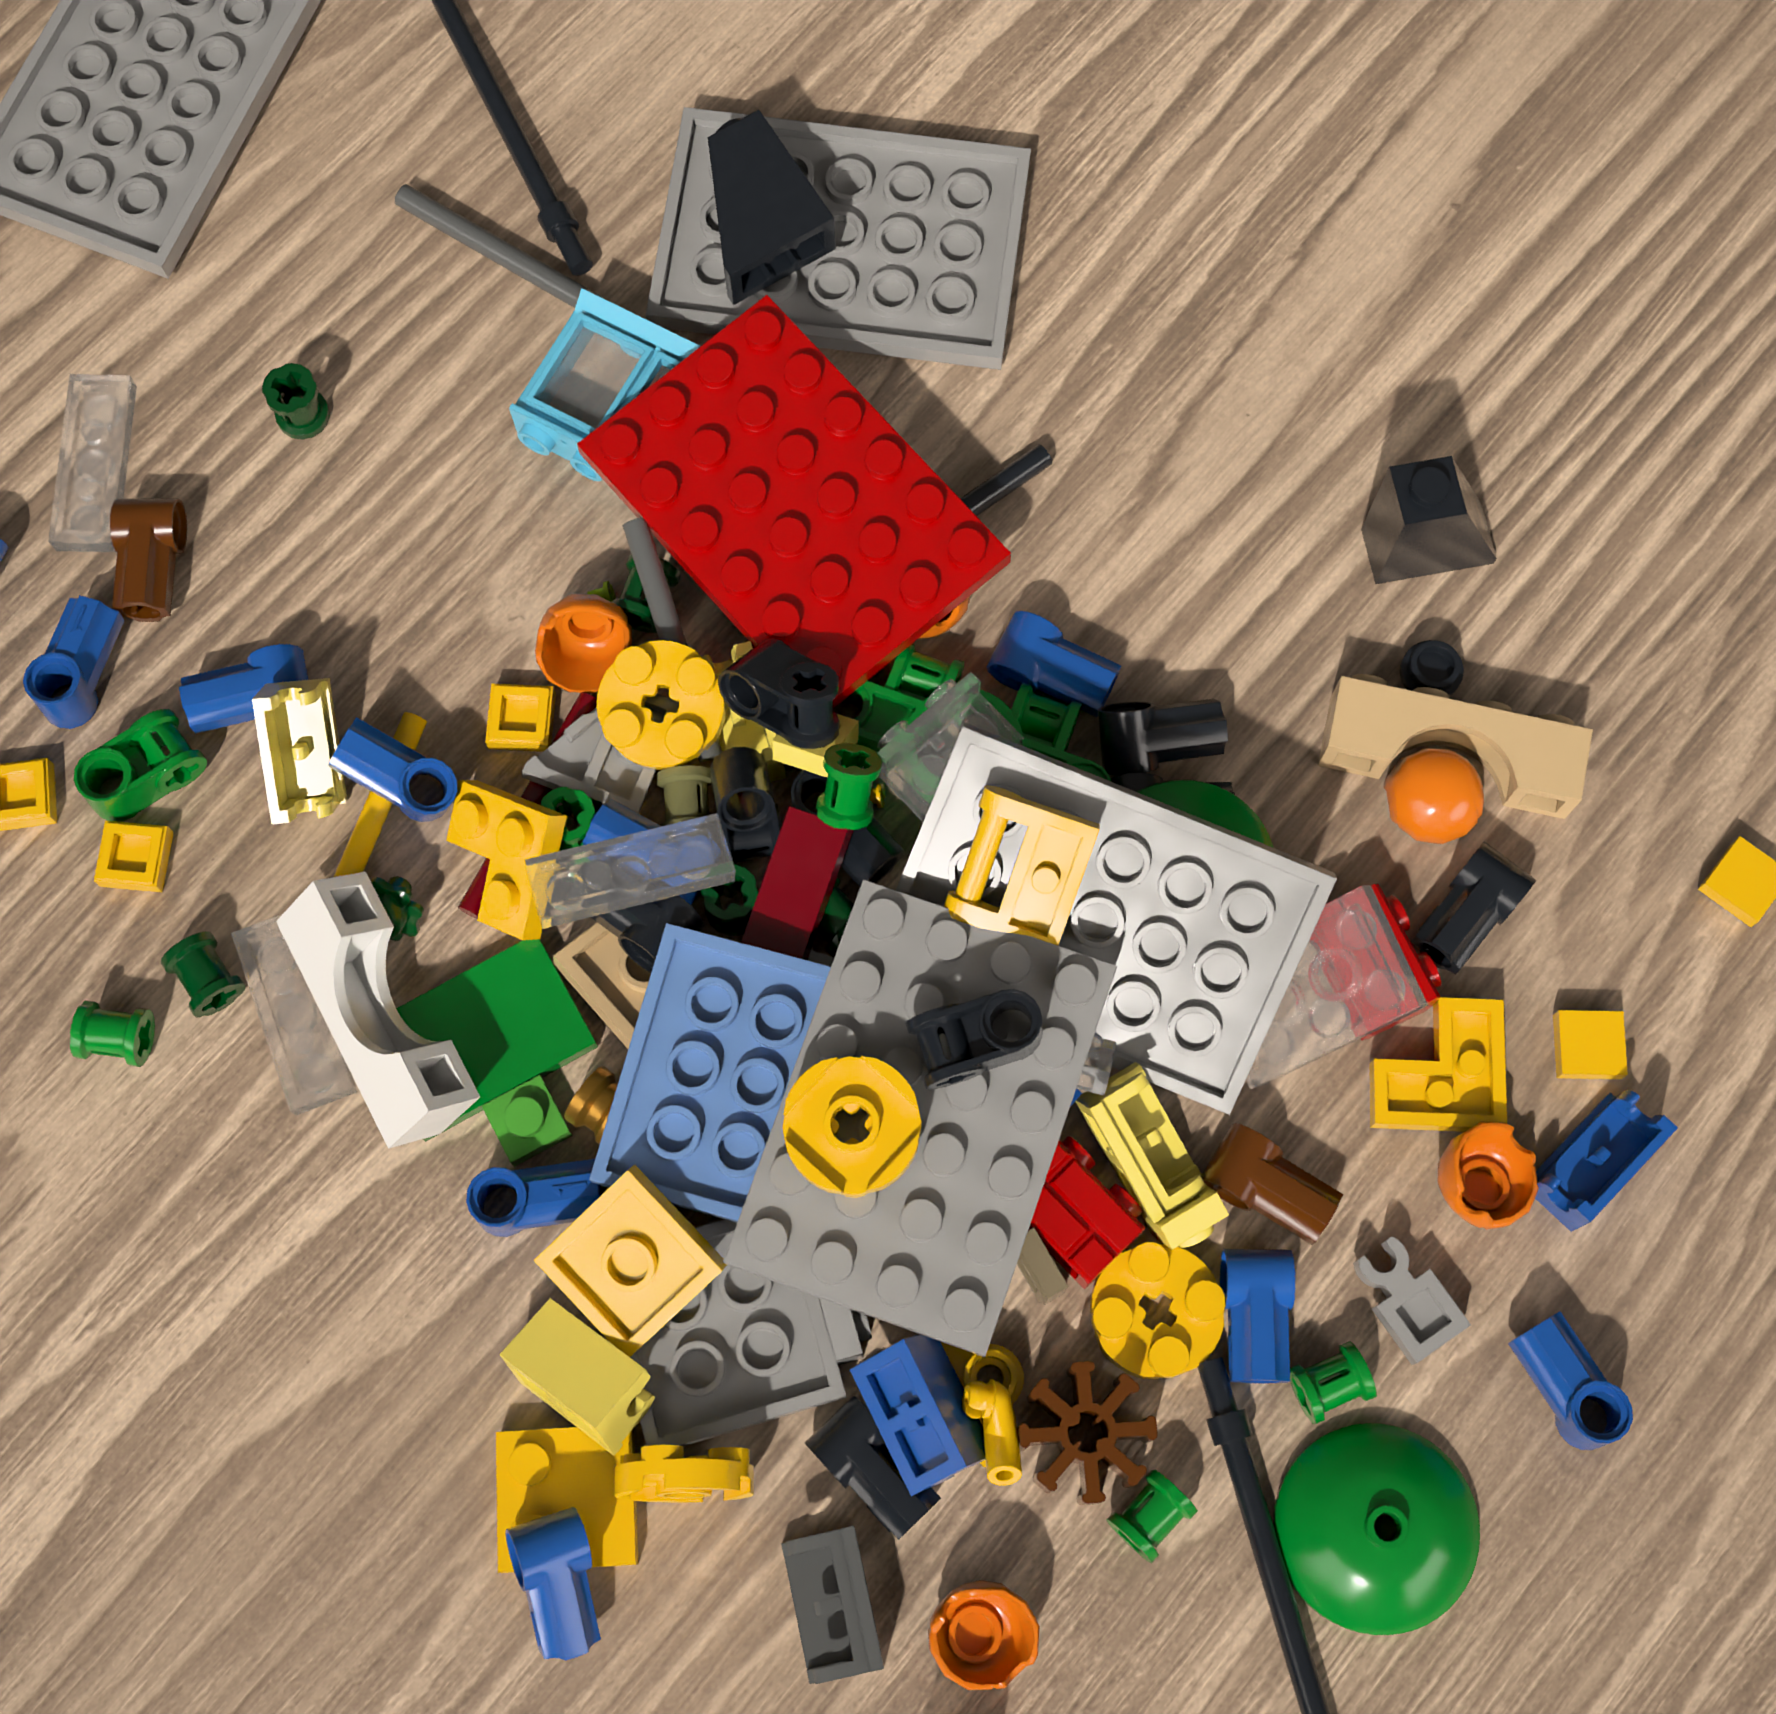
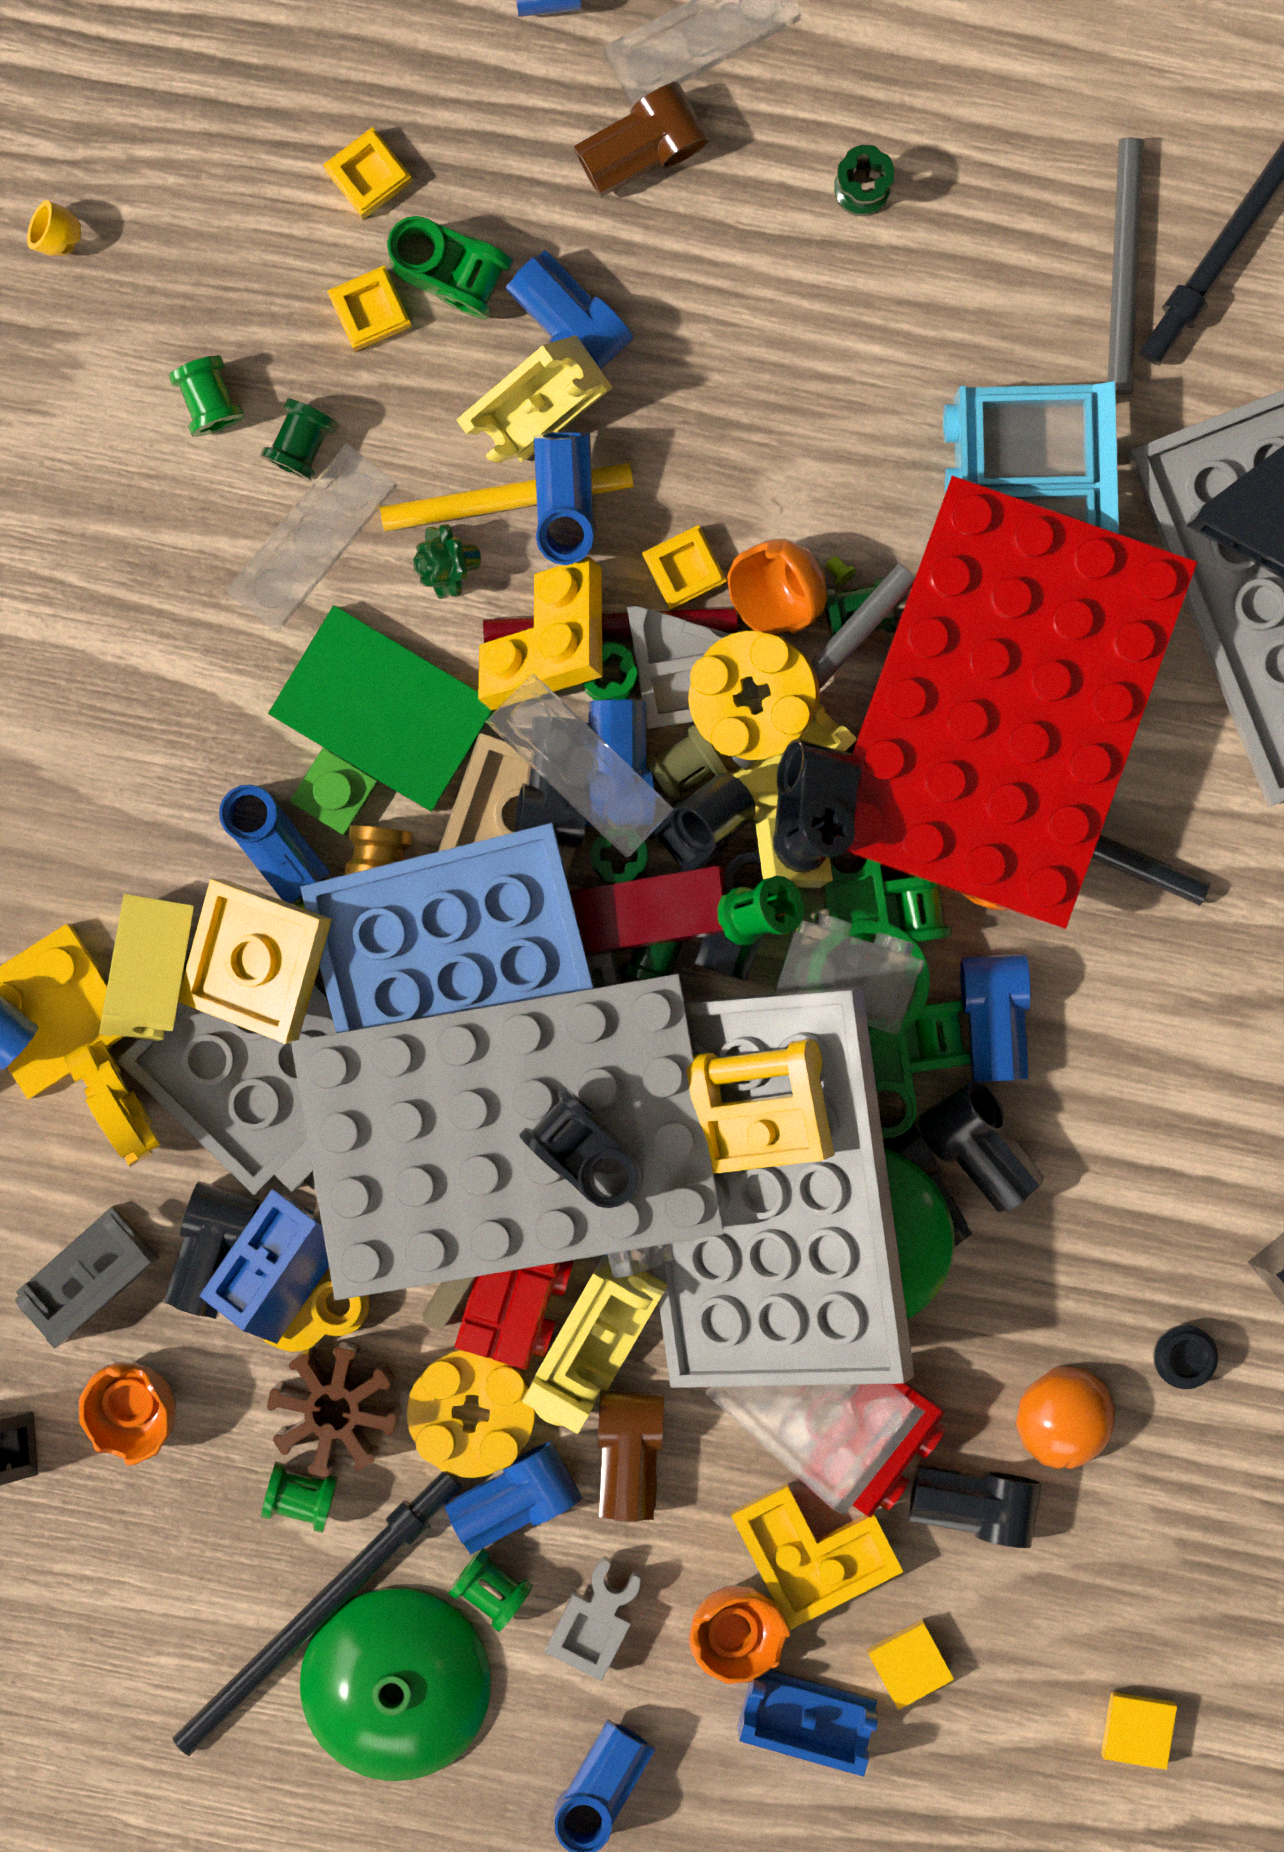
camera: 65 degrees right, 15 degrees up
(76, 658) = (516, 139): blue piece -> none
(341, 949) = (379, 552): white arch -> none
(851, 1166) = (422, 1109): yellow plate -> none
(1000, 1431) = (288, 1342): yellow arm -> none
(1532, 759) = (1143, 1490): tan arch -> none

